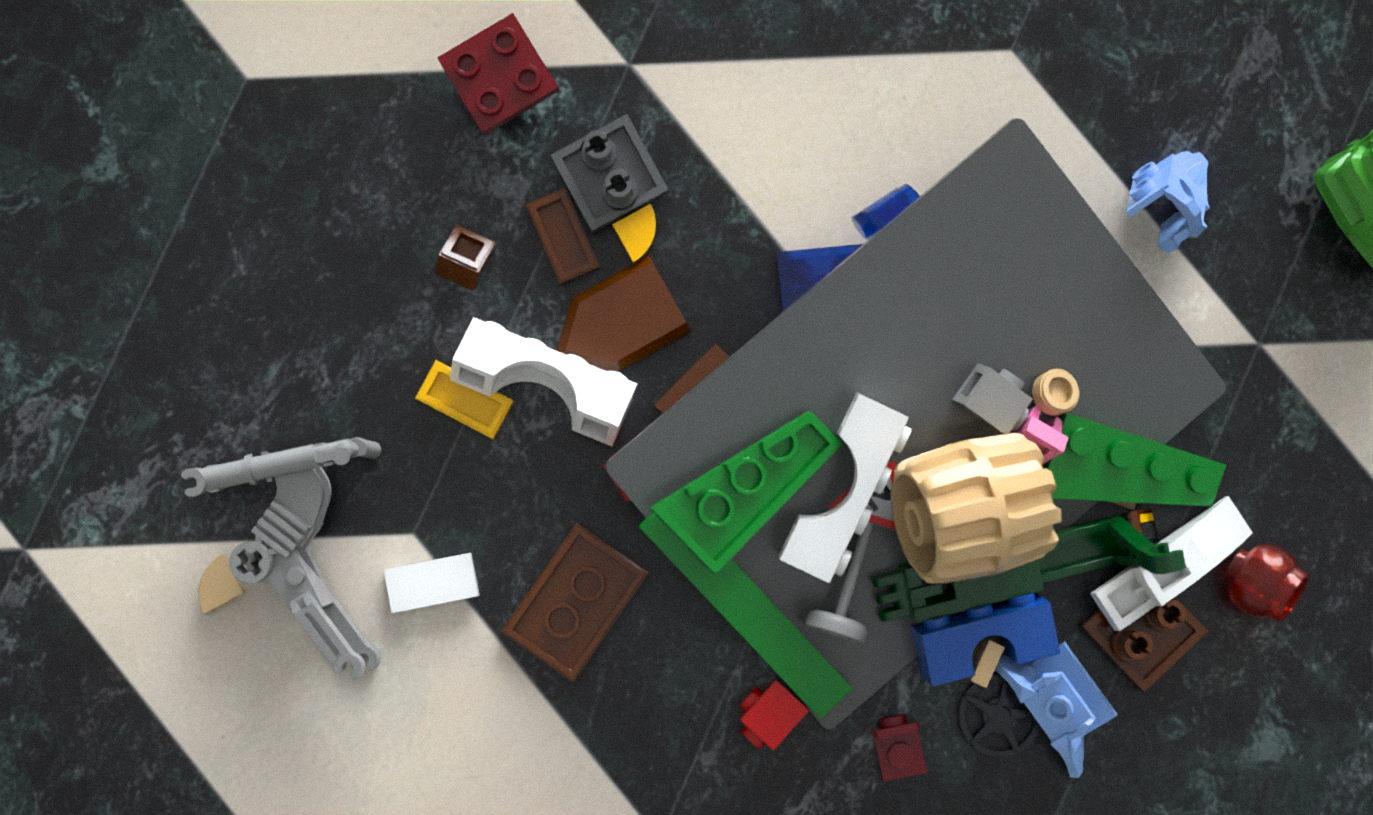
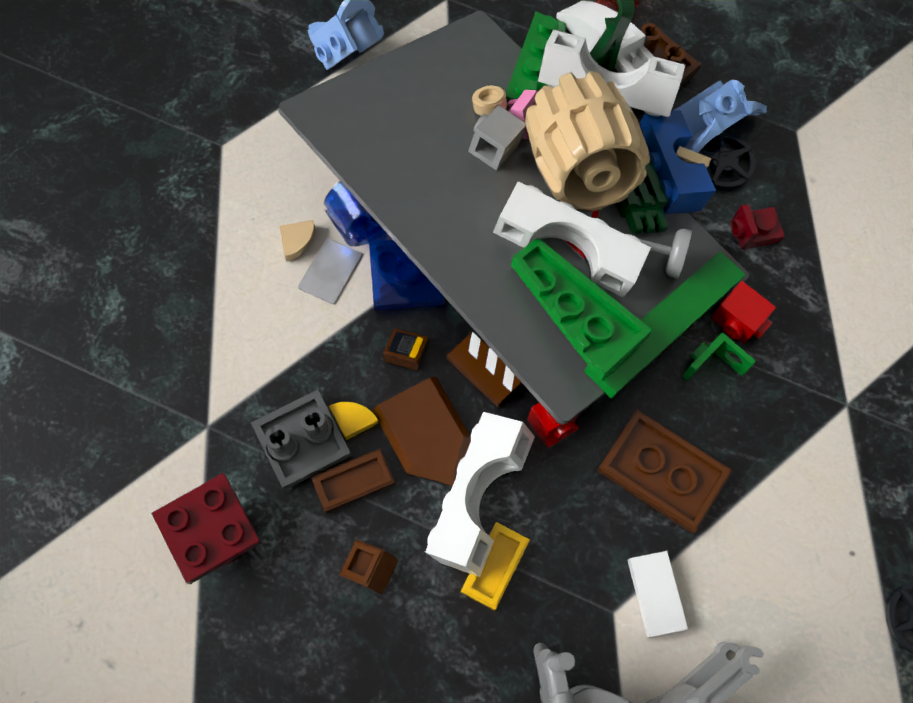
camera: 90 degrees left, 15 degrees down
(720, 661) = (720, 347): none -> green bracket
(726, 293) = (405, 349): none -> slope
(830, 196) = (329, 271): none -> flat silver sticker
(873, 154) = (296, 238): none -> tan tile
(1106, 504) = (646, 88): none -> white arch

